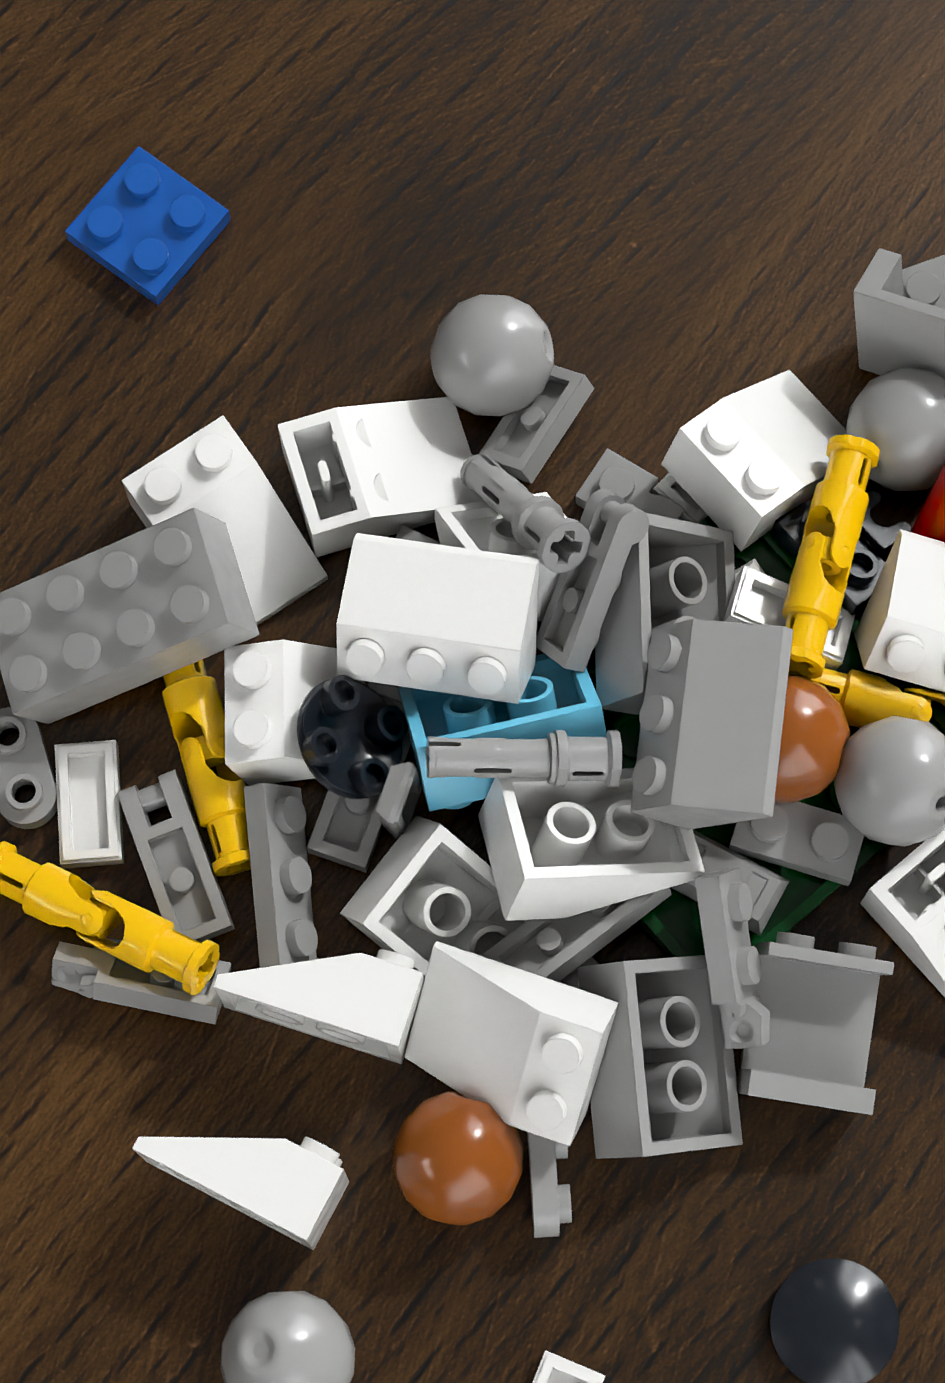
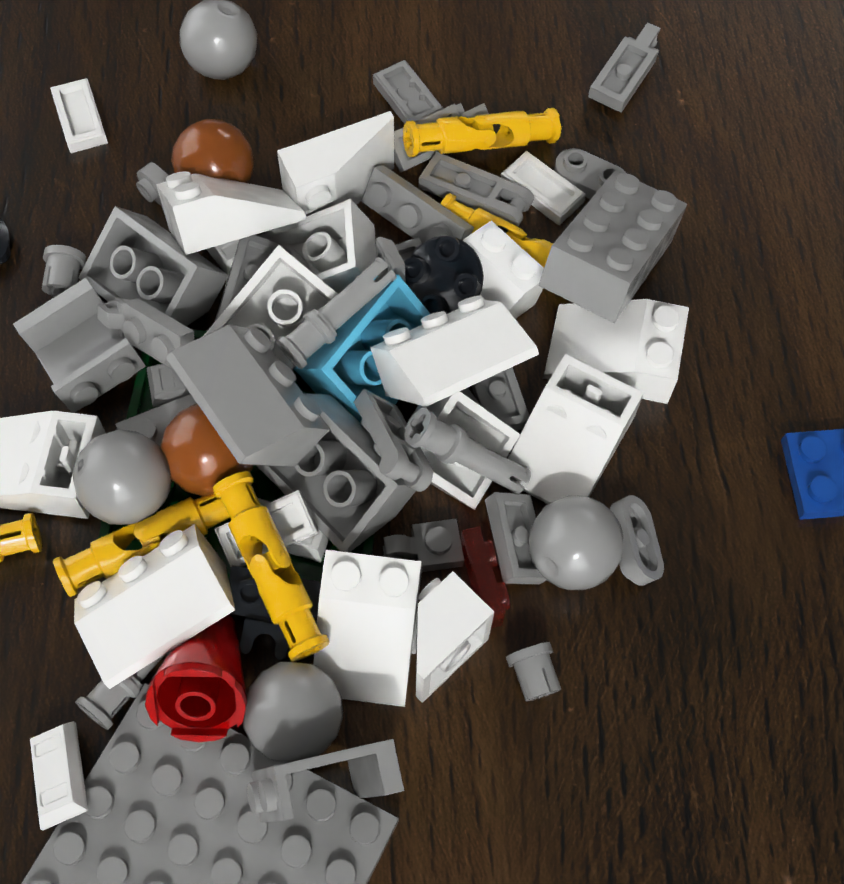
camera: 135 degrees right, 10 degrees down
(121, 1070) = (405, 92): none -> light grey plate
(264, 1178) = (303, 81): white slope -> none
(408, 335) = (641, 551): none -> light grey plate
(616, 391) = (479, 560): none -> clear red plate
(640, 291) = (535, 671): none -> light grey bush
(703, 363) = (449, 631): none -> white slope
(754, 1169) = (61, 268): none -> light grey bush

